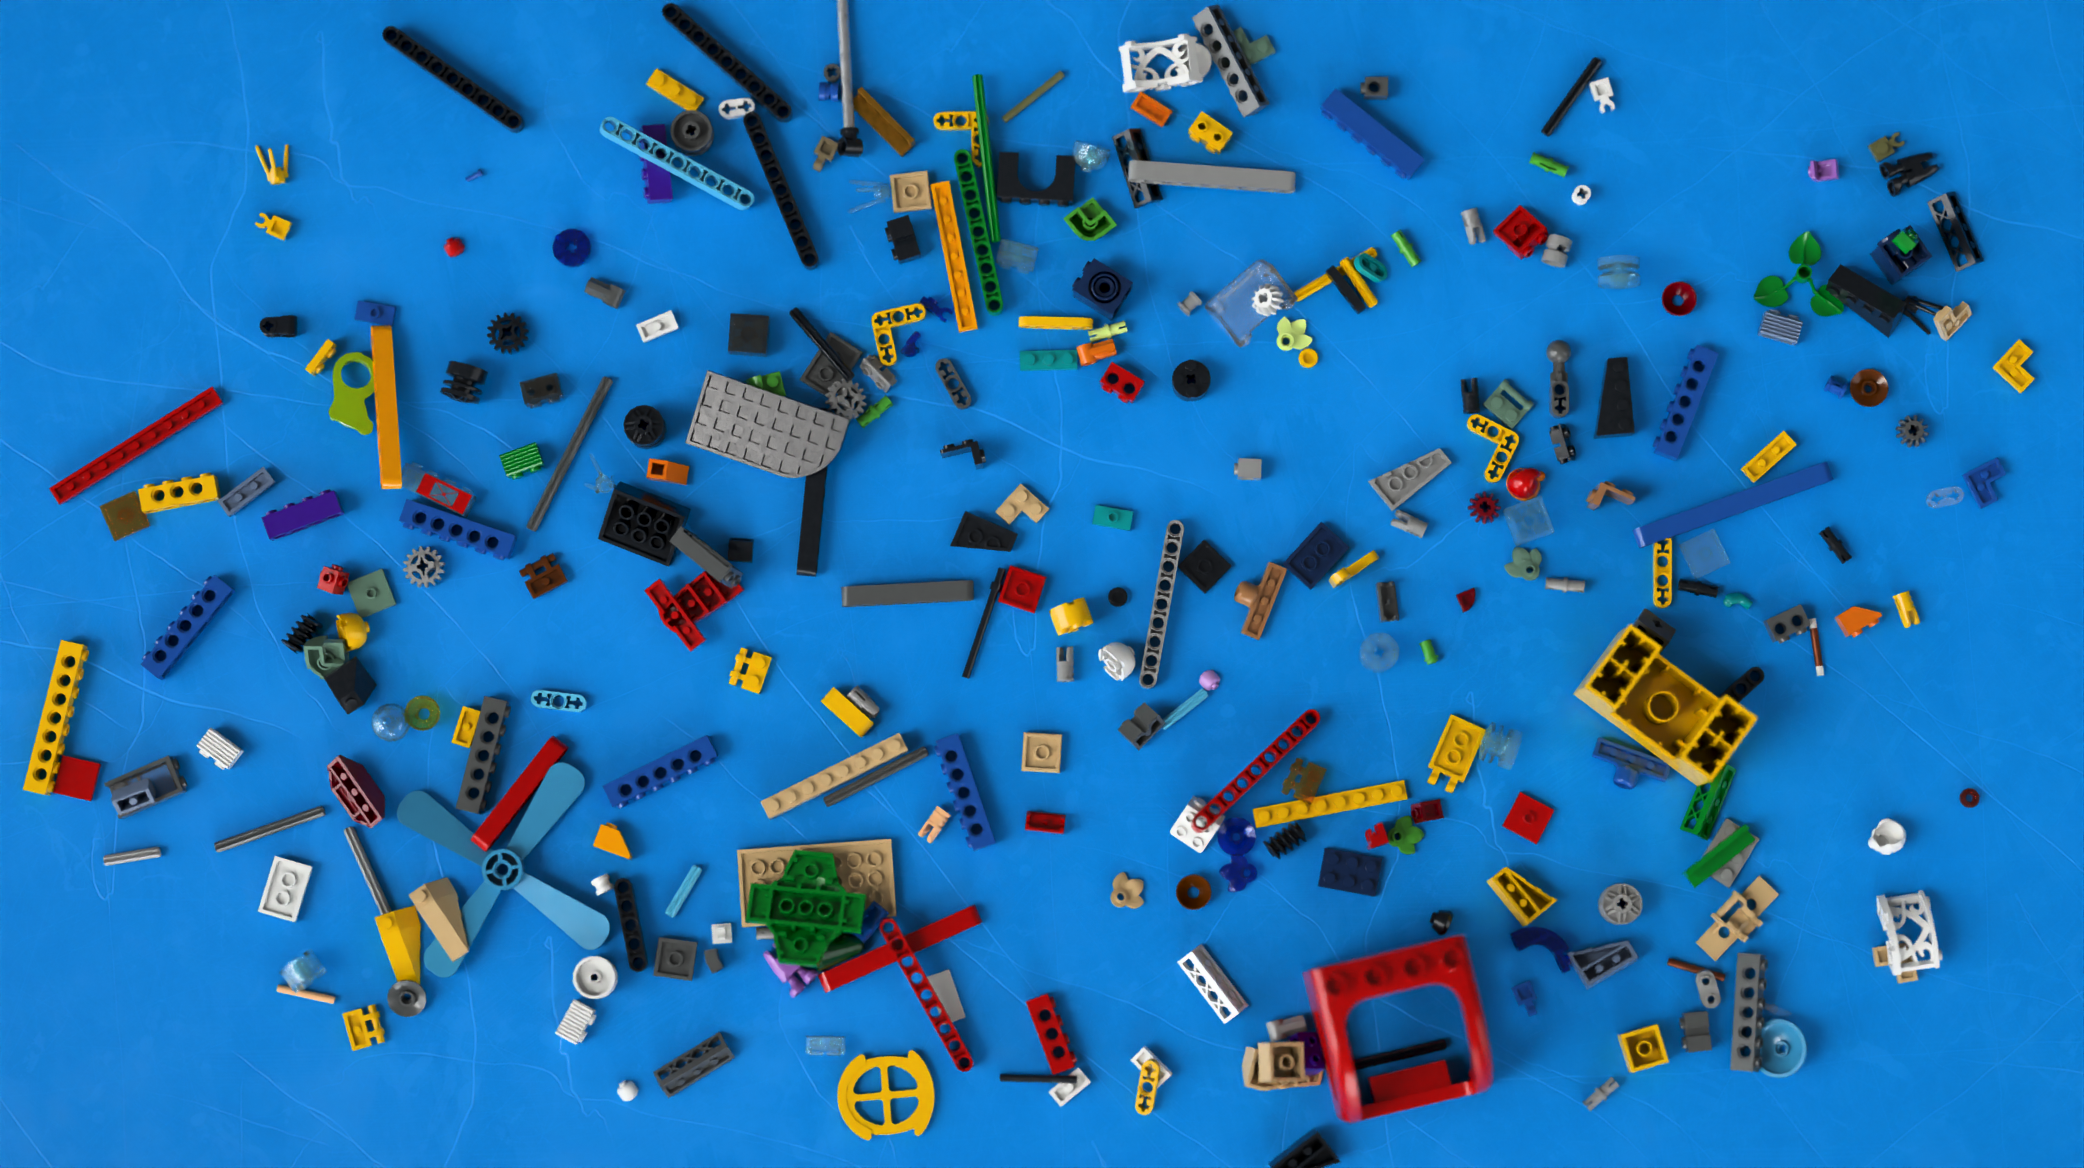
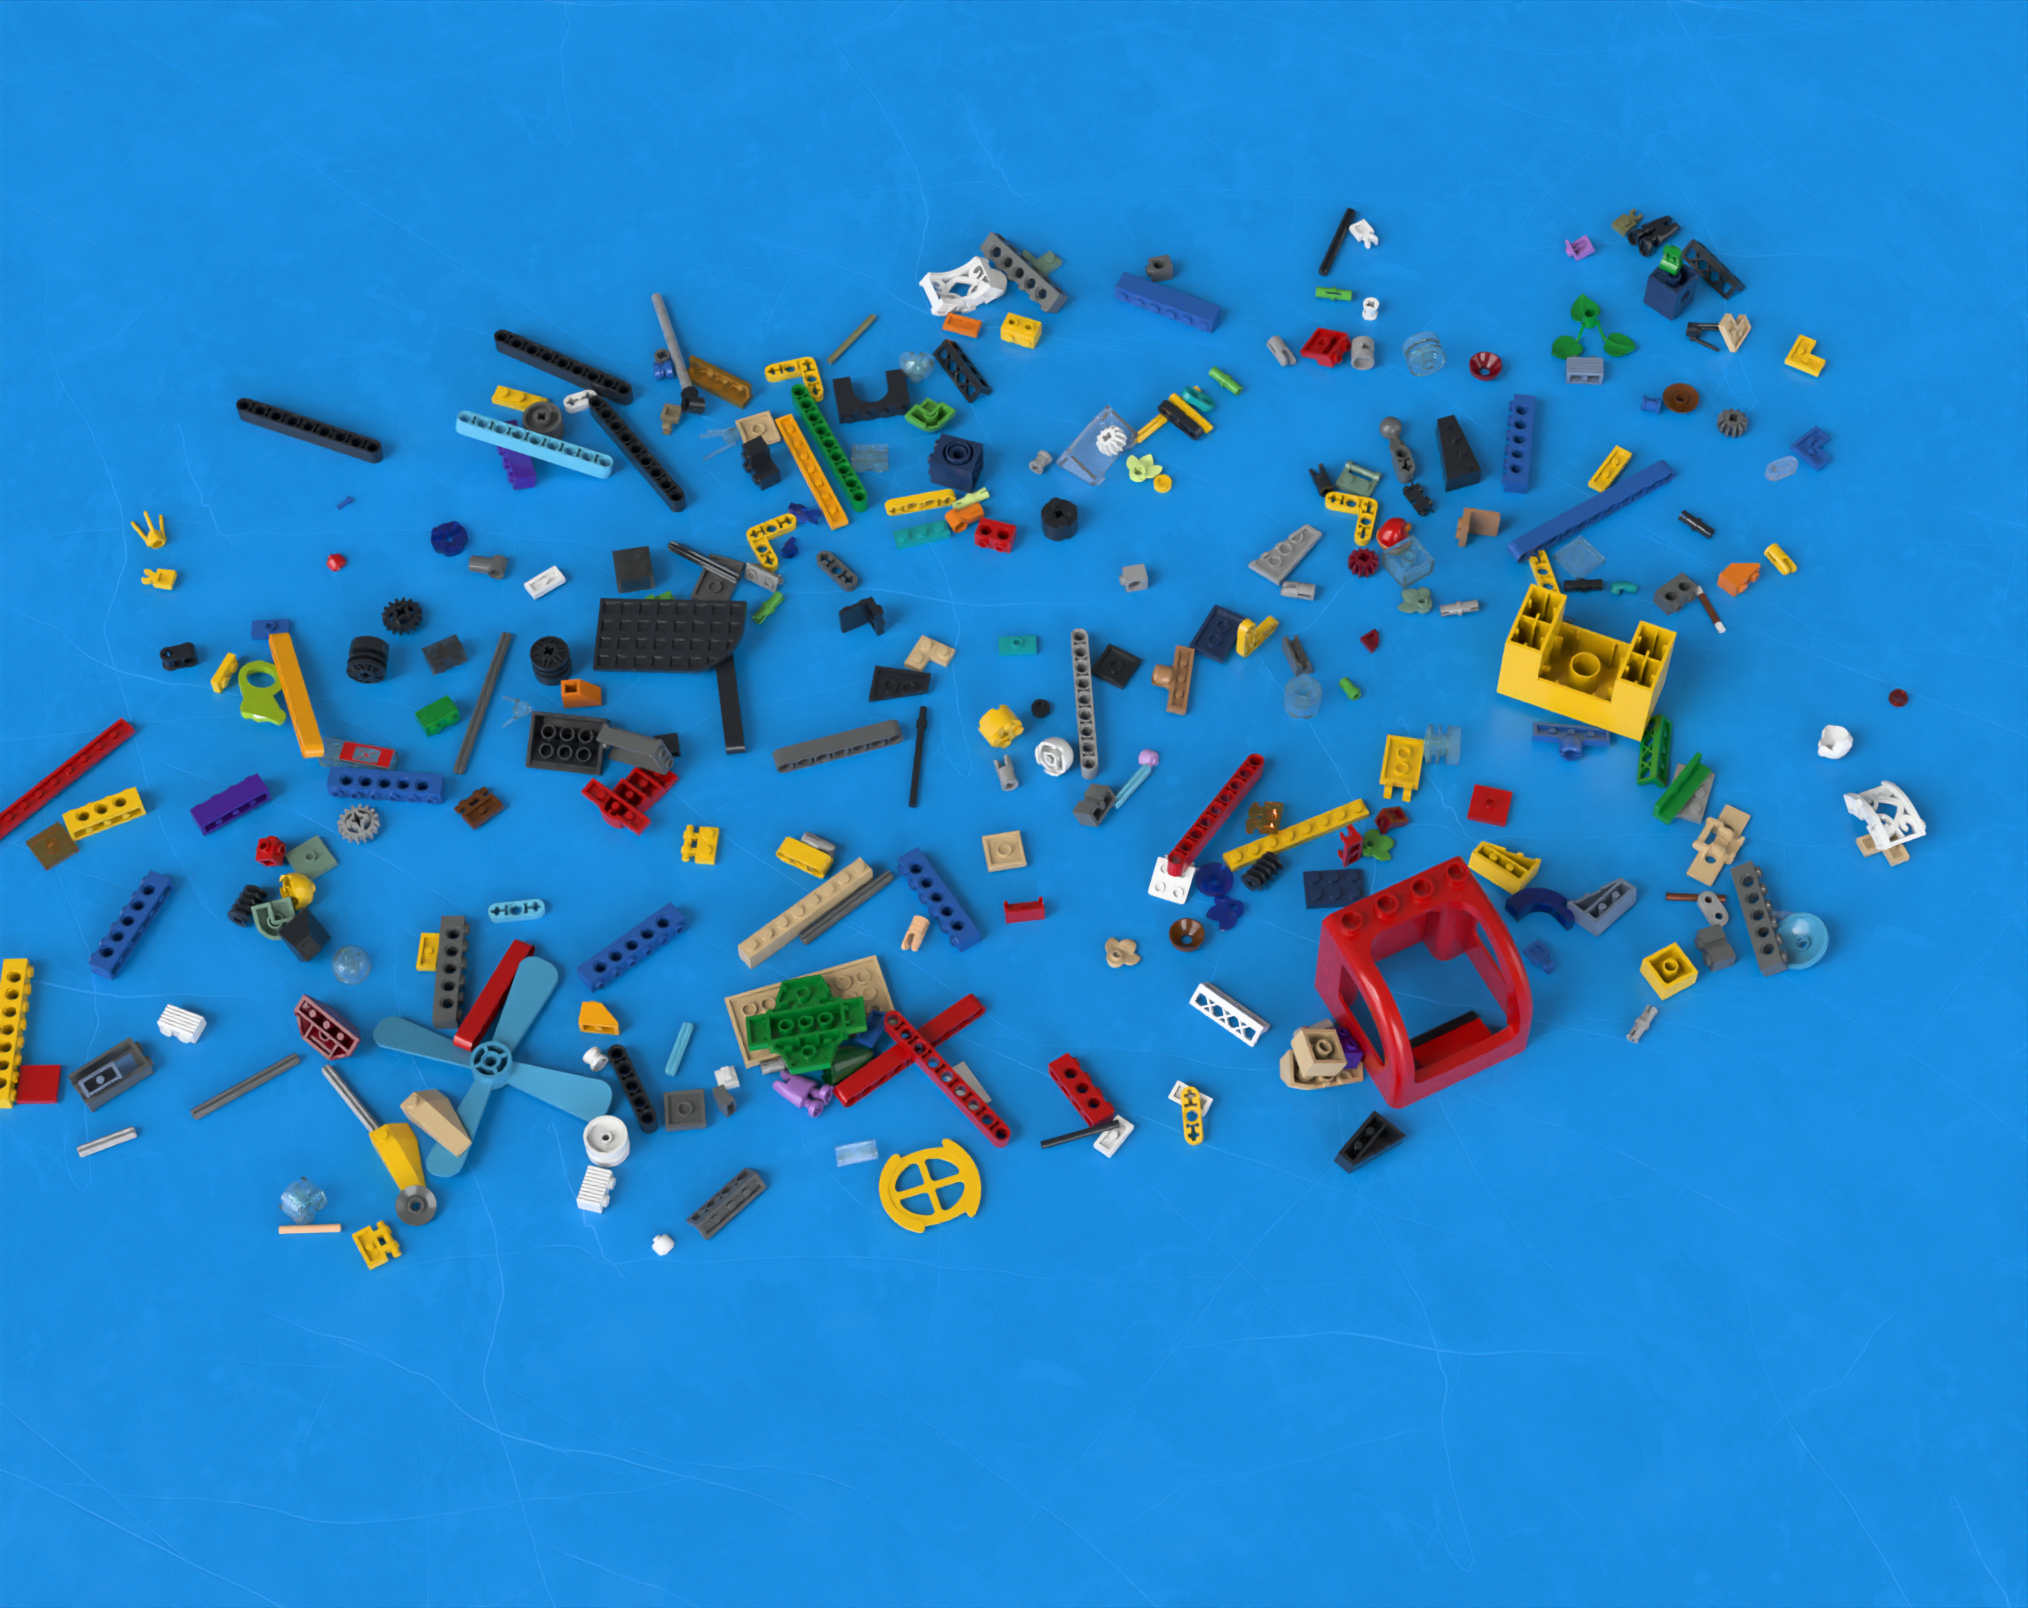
camera: 15 degrees left, 25 degrees down
(246, 491) = (170, 799): sand blue plate -> none
(285, 889) = (271, 1135): white plate -> none
(412, 713) = (380, 940): clear yellow piece -> none
(845, 399) = (738, 593): light grey gear -> none
(986, 158) = (821, 388): green axle -> none
(1022, 589) = (947, 720): red plate -> none
(1211, 176) = (1032, 358): light grey beam -> none
(1608, 904) = (1602, 852): light grey wheel -> none
(1866, 299) = (1653, 330): black wedge -> none

